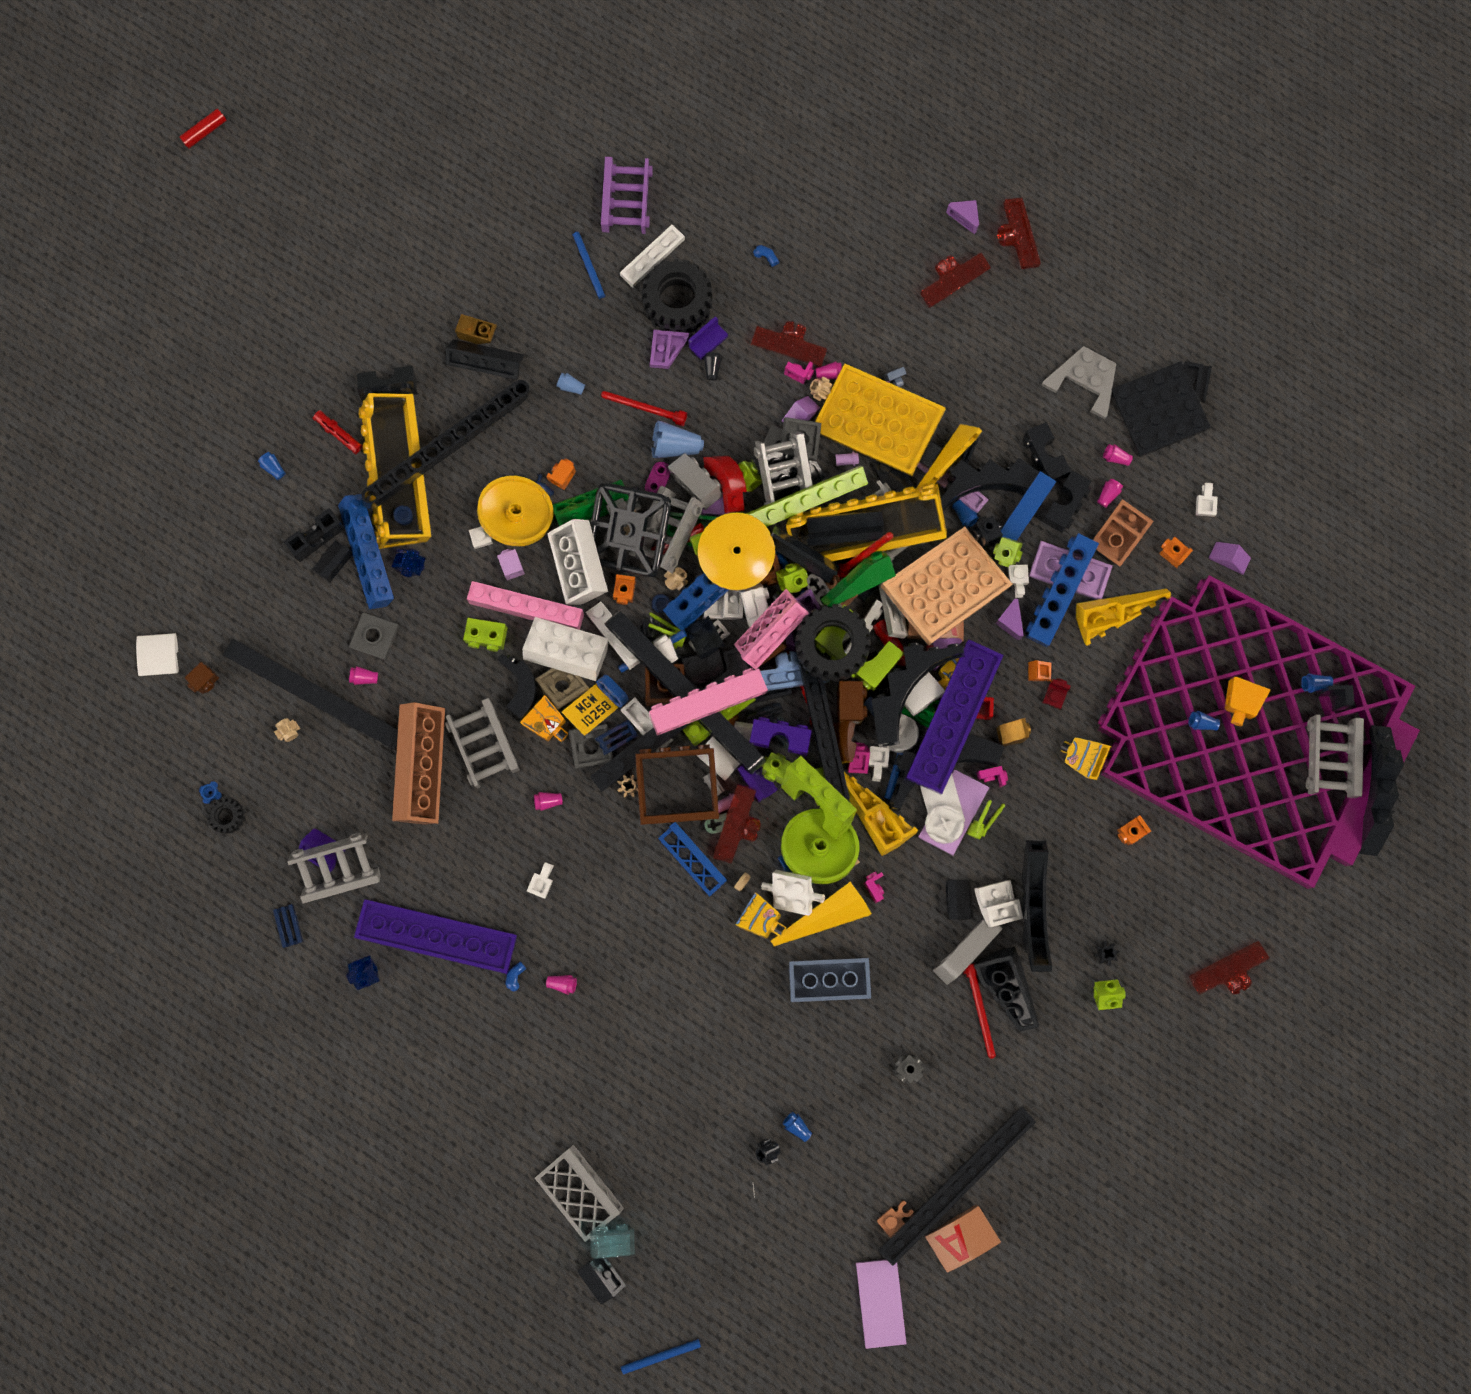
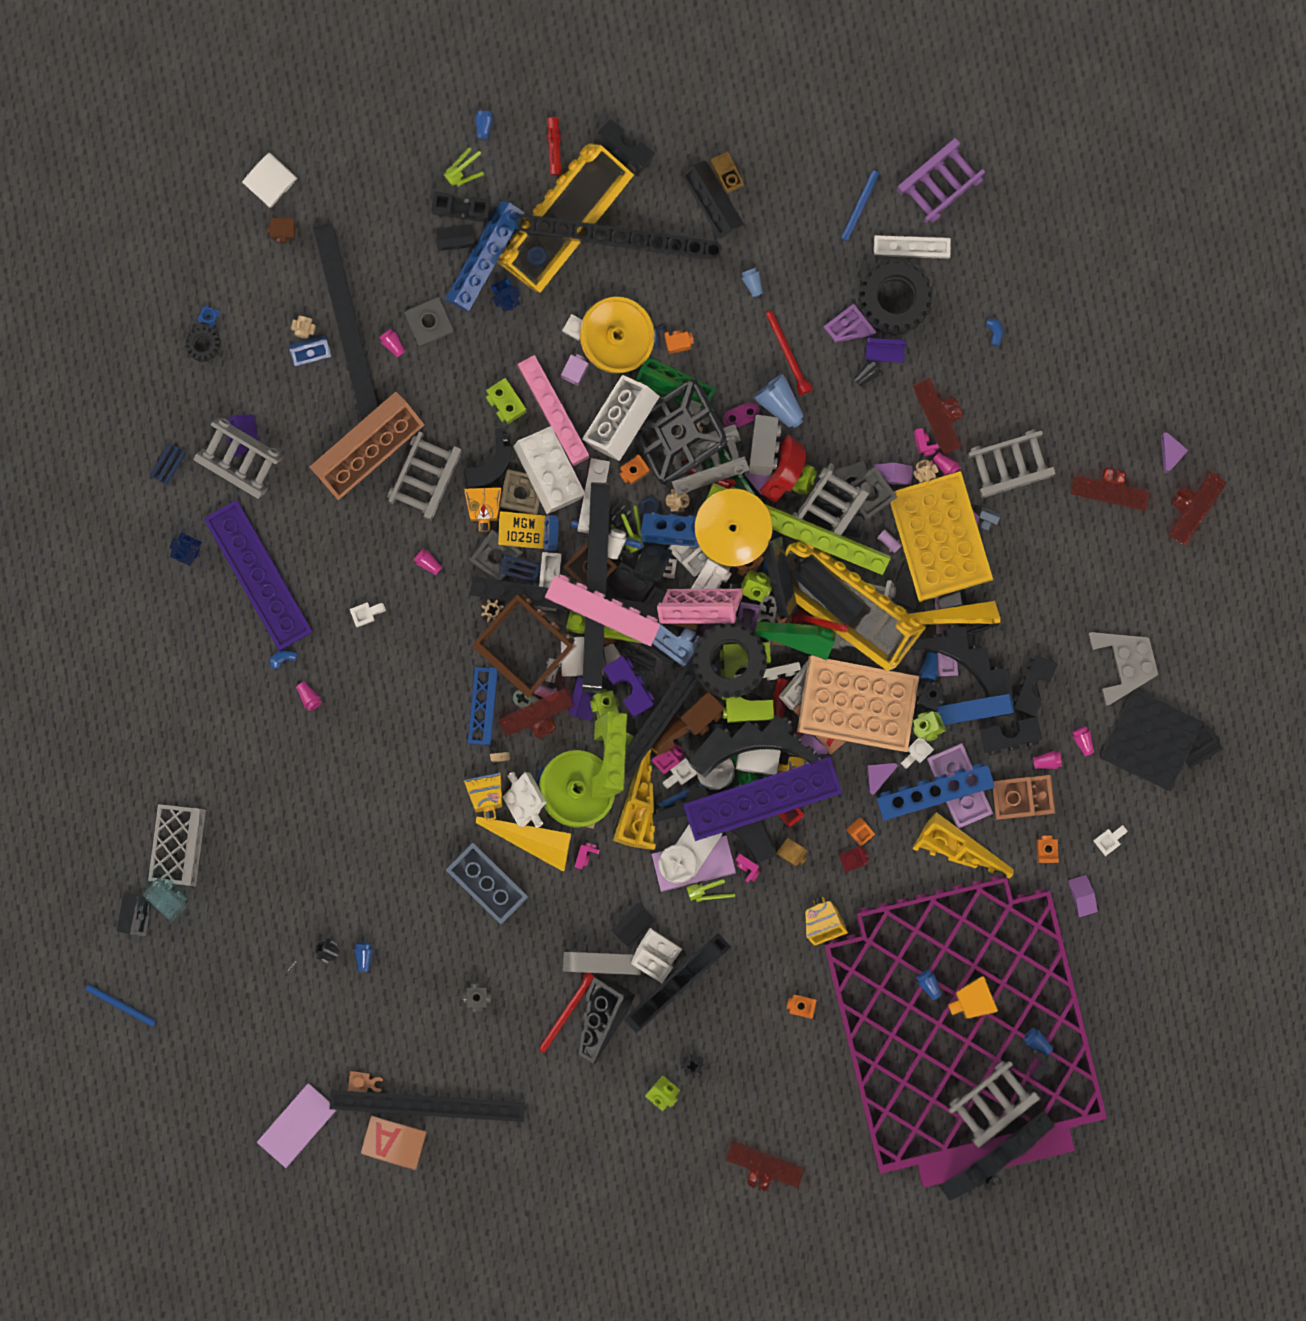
camera: 45 degrees right, 5 degrees up
(287, 519) = (453, 173): none -> lime plant
(309, 742) = (310, 350): none -> blue slope
(881, 341) = (1007, 482): none -> light grey fence

